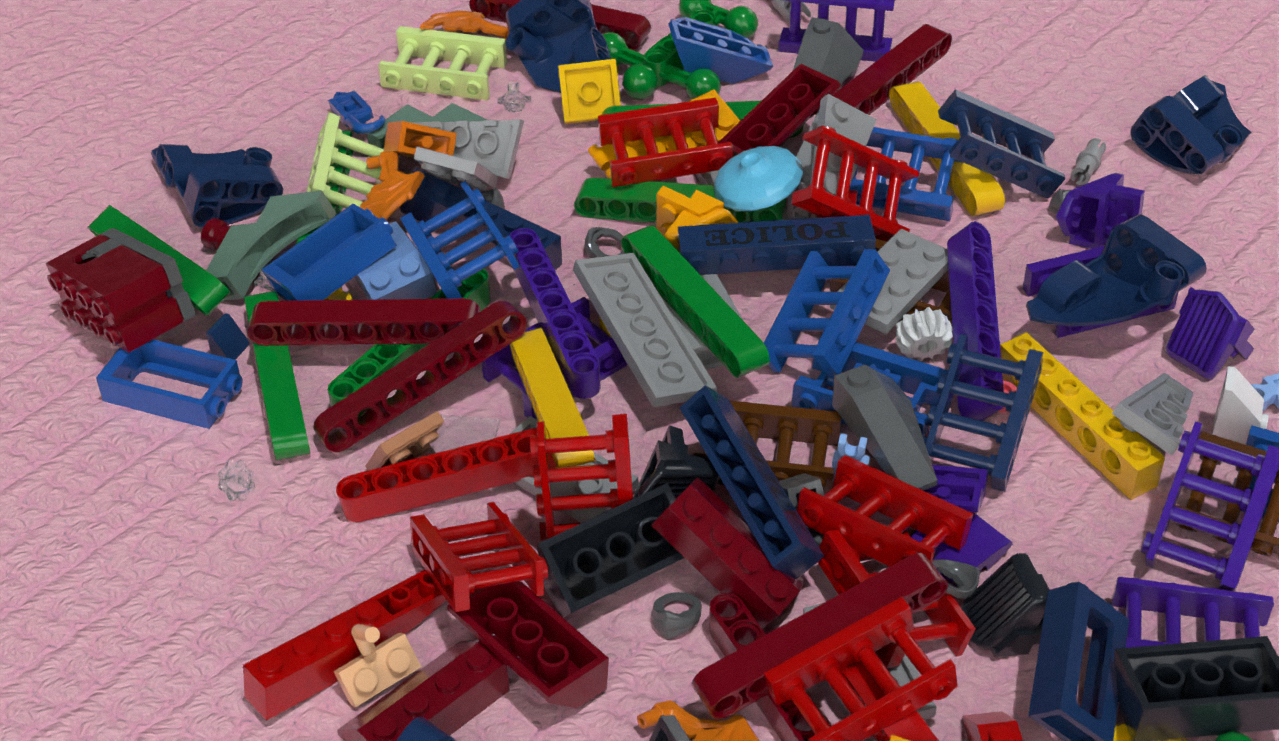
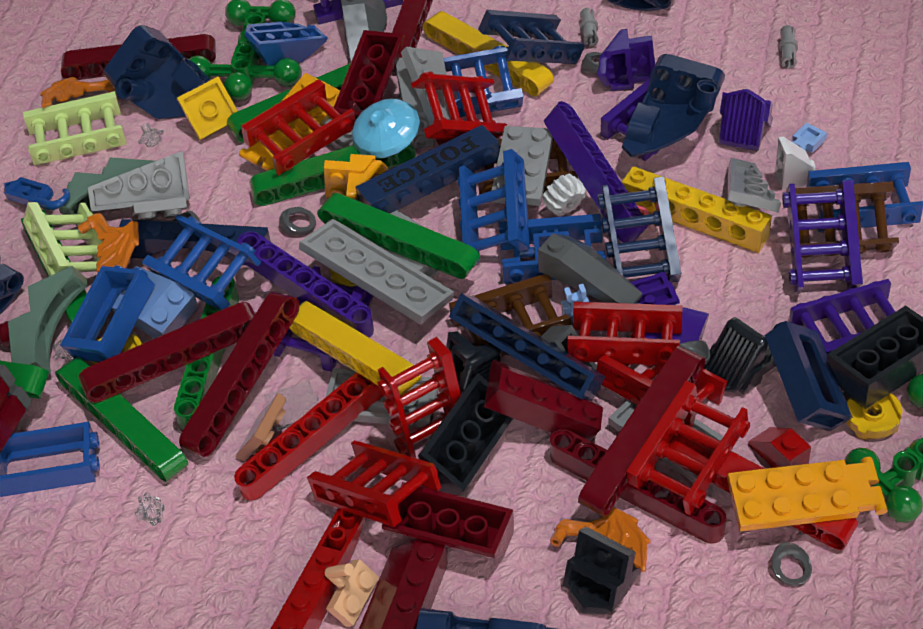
camera: 25 degrees left, 5 degrees up
(226, 338) = (62, 409): dark blue slope -> none
(406, 136) = (109, 197): orange slope -> none
(671, 624) = (527, 468): dark grey piece -> none

